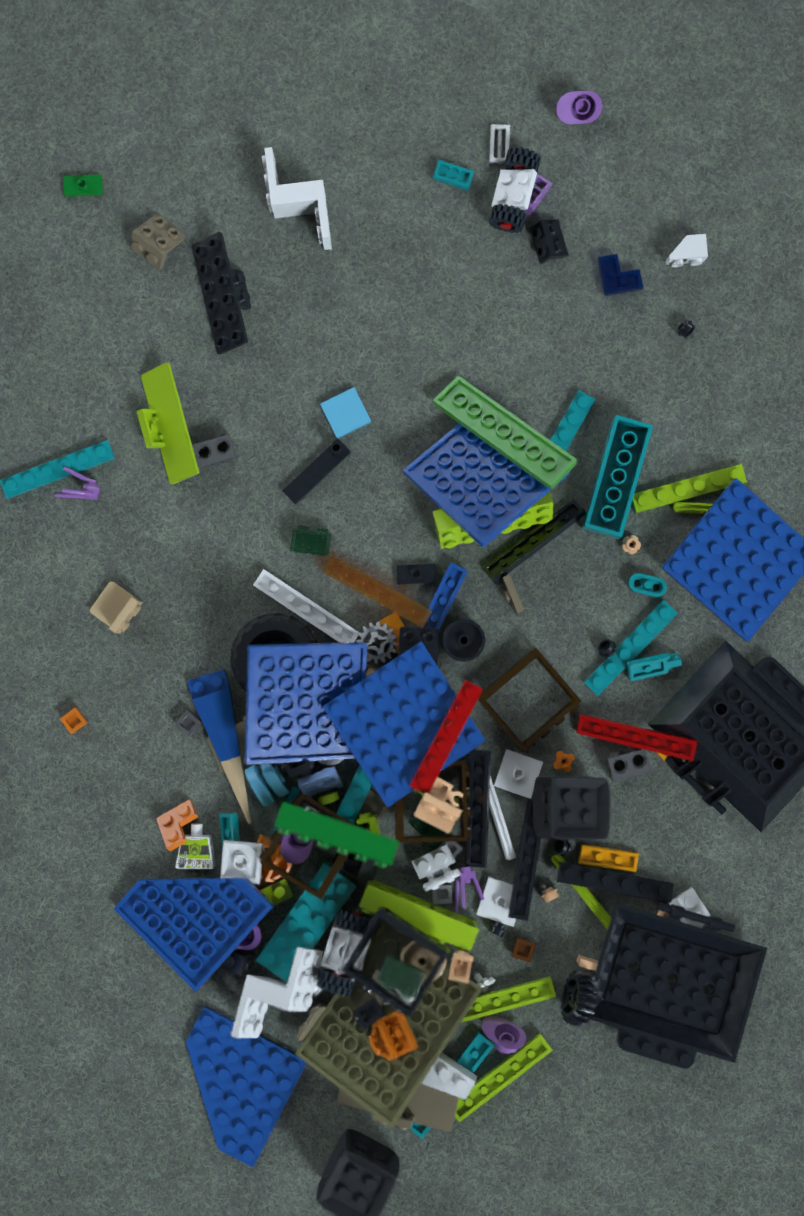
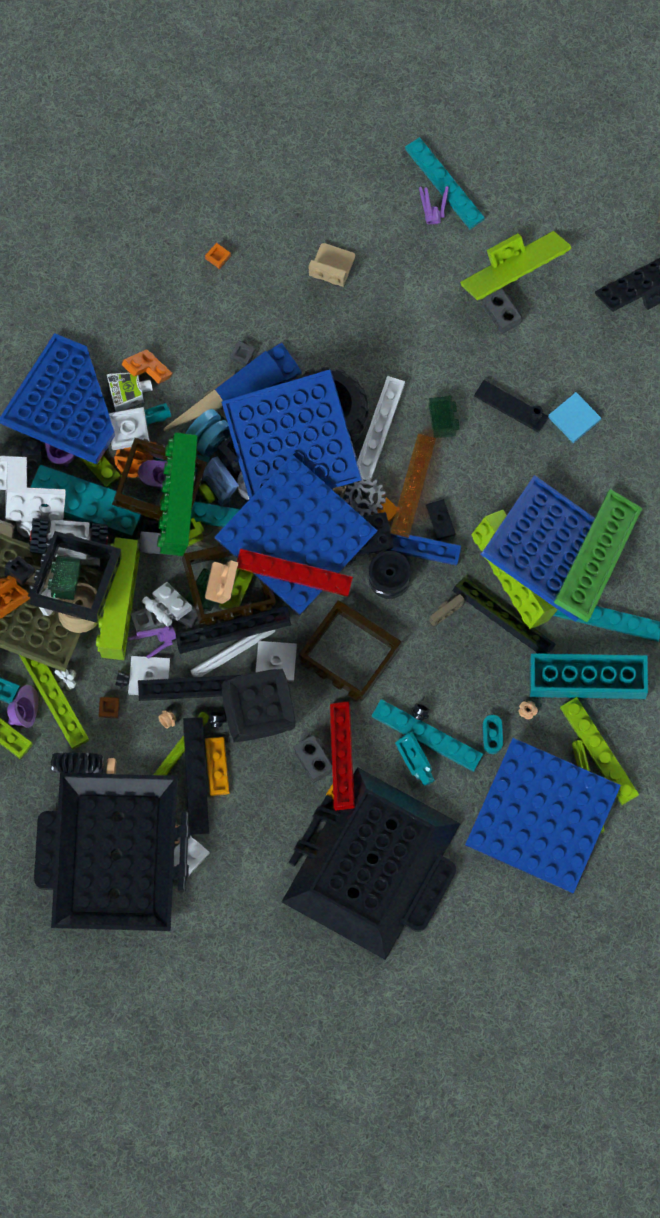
camera: 75 degrees right, 15 degrees down
(442, 791) = (242, 583): light nougat plate -> none
(460, 967) = (81, 643): light nougat bracket -> none
(565, 766) = (303, 696): orange plate -> none

